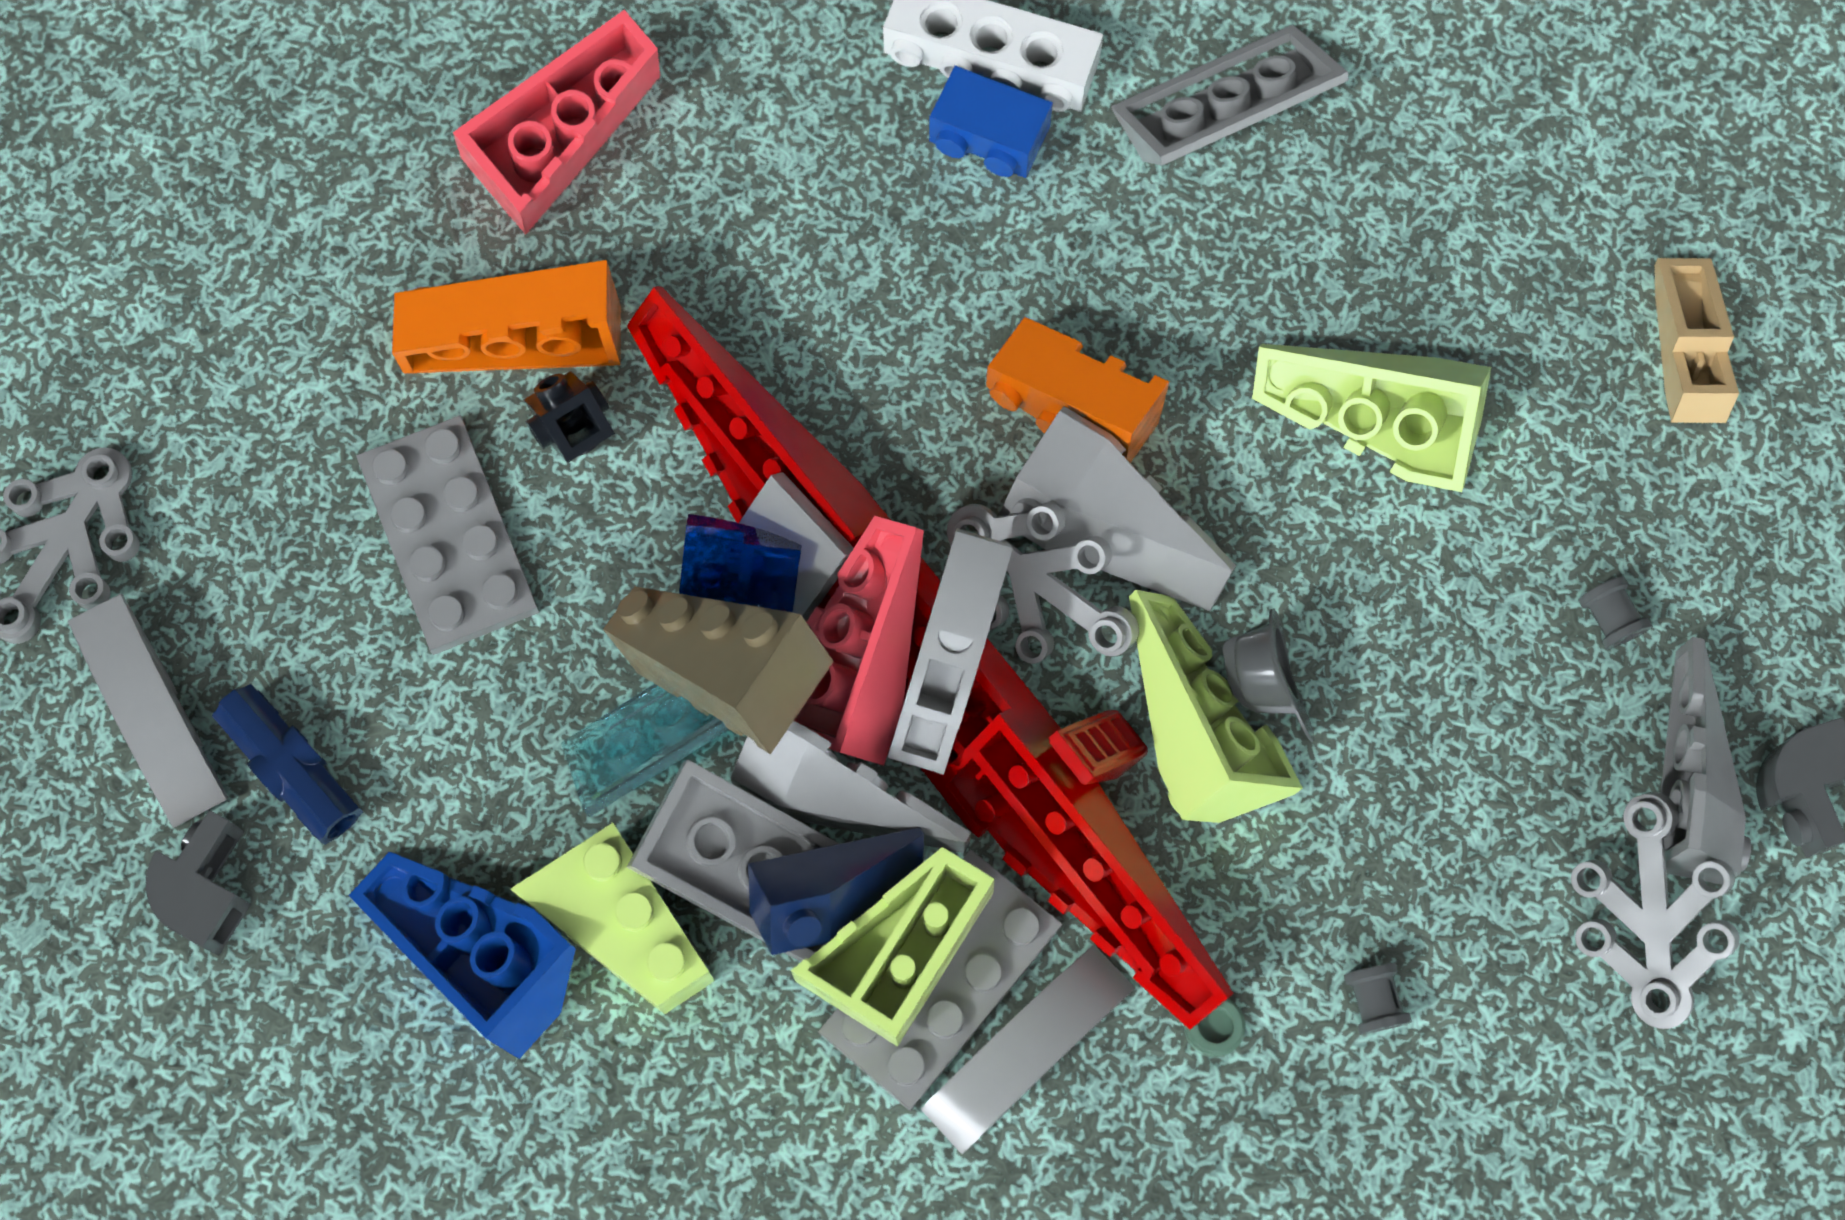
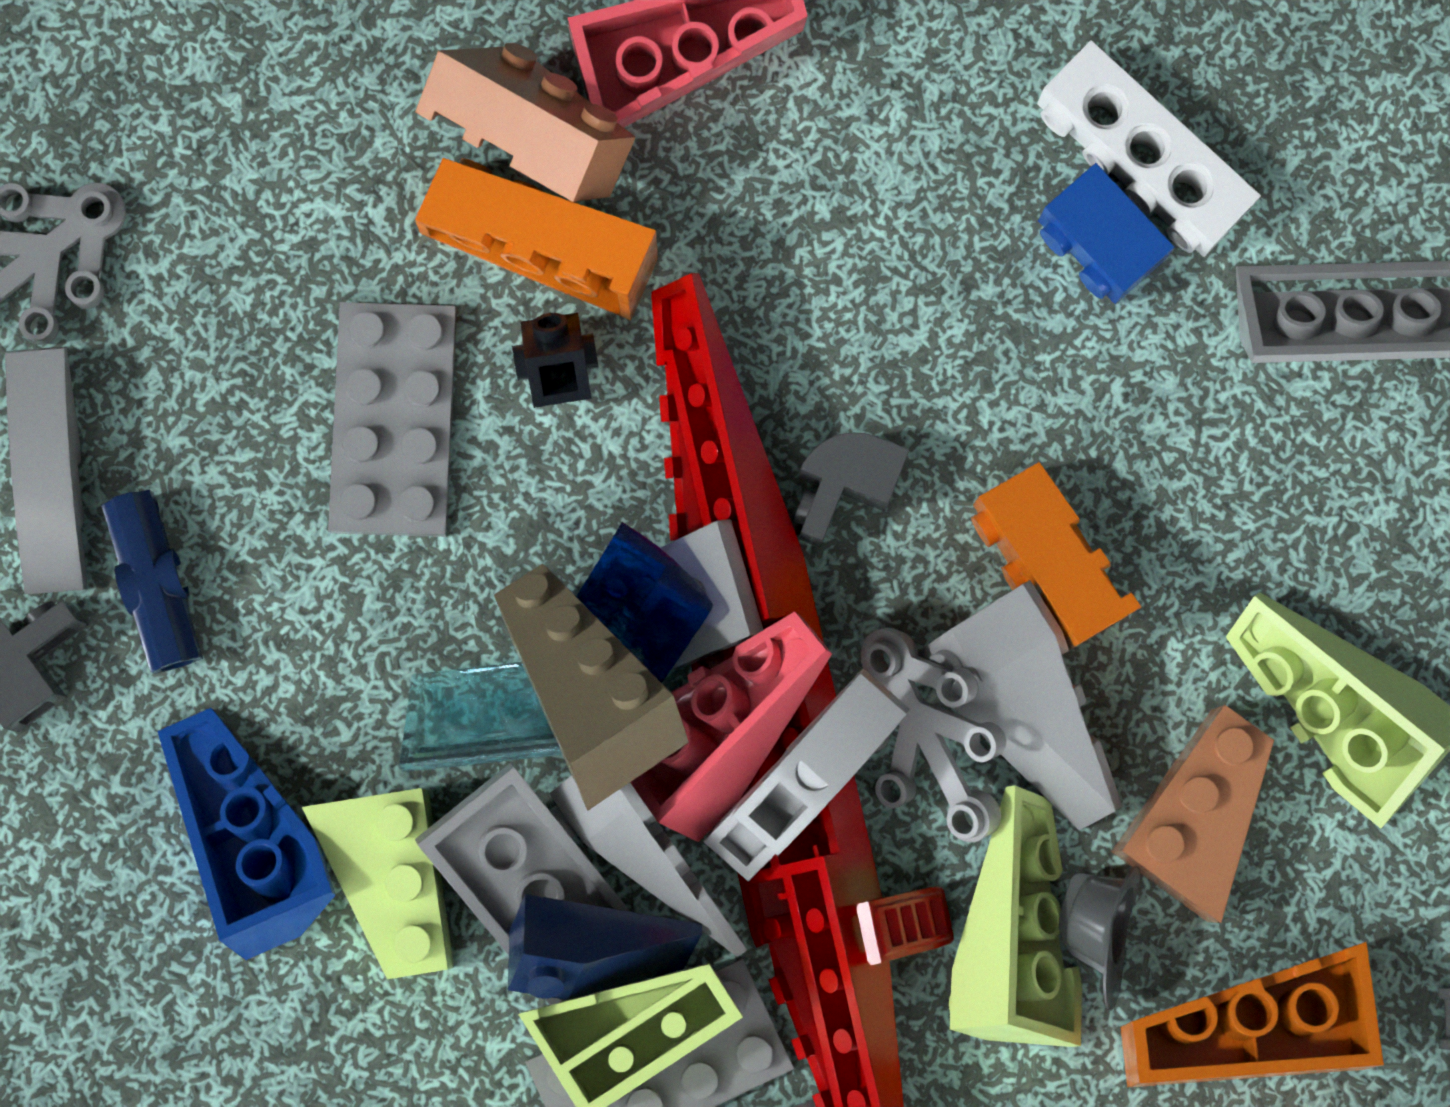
camera: 20 degrees right, 10 degrees up
(455, 224) = (531, 115): none -> wedge
(864, 396) = (850, 466): none -> dark grey brick
(1307, 546) = (1200, 814): none -> nougat wedge
(1482, 678) = (1263, 1027): none -> orange wedge

